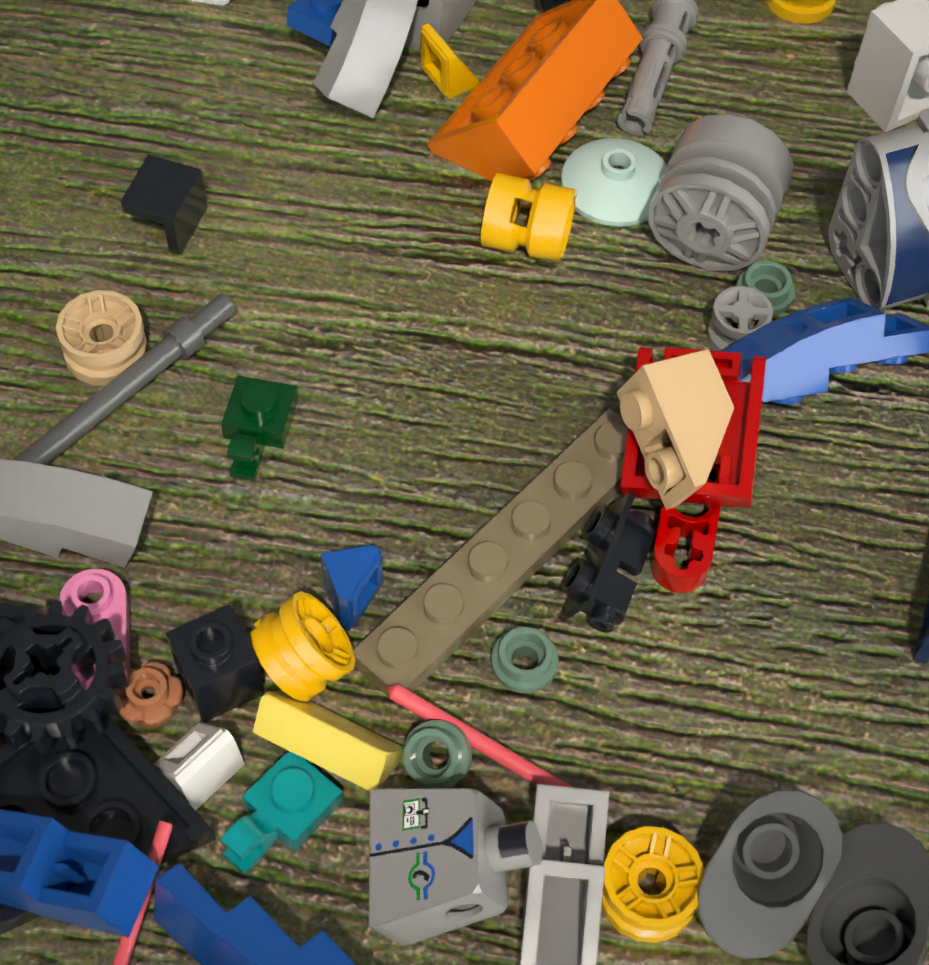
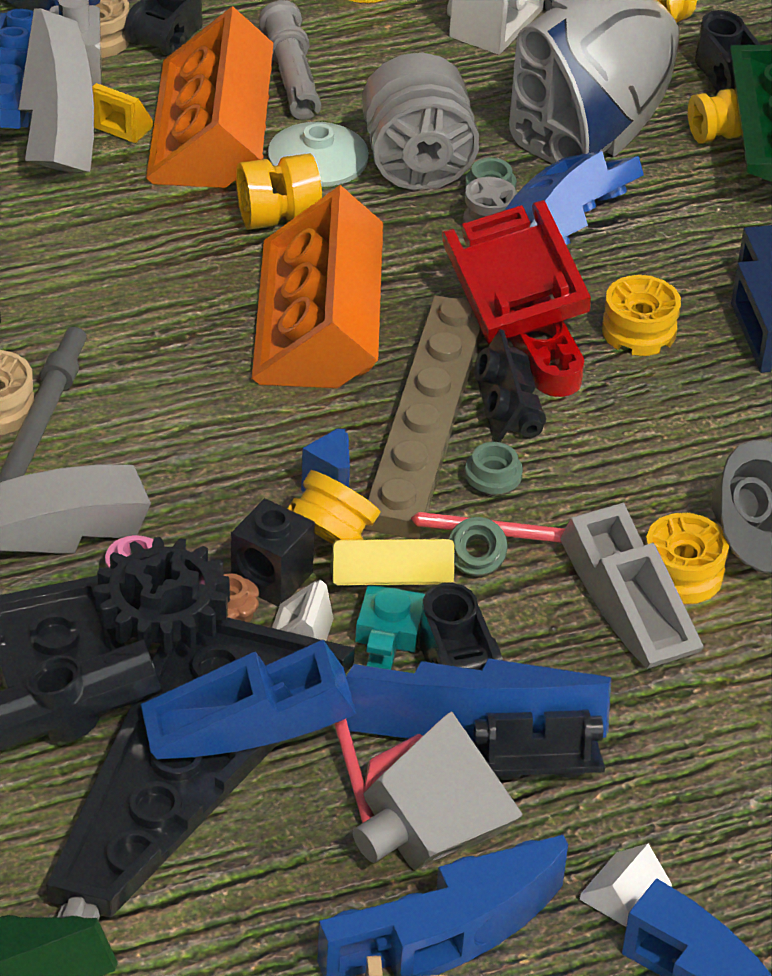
camera: 30 degrees left, 15 degrees down
(256, 418) = (167, 401): dark green plate -> none
(321, 890) = (455, 629): none -> black piece
(441, 860) = (537, 588): light grey torso -> none
(489, 362) = (320, 296): none -> orange slope
(678, 420) = (512, 259): tan slope -> none
(820, 507) = (641, 314): none -> yellow wheel

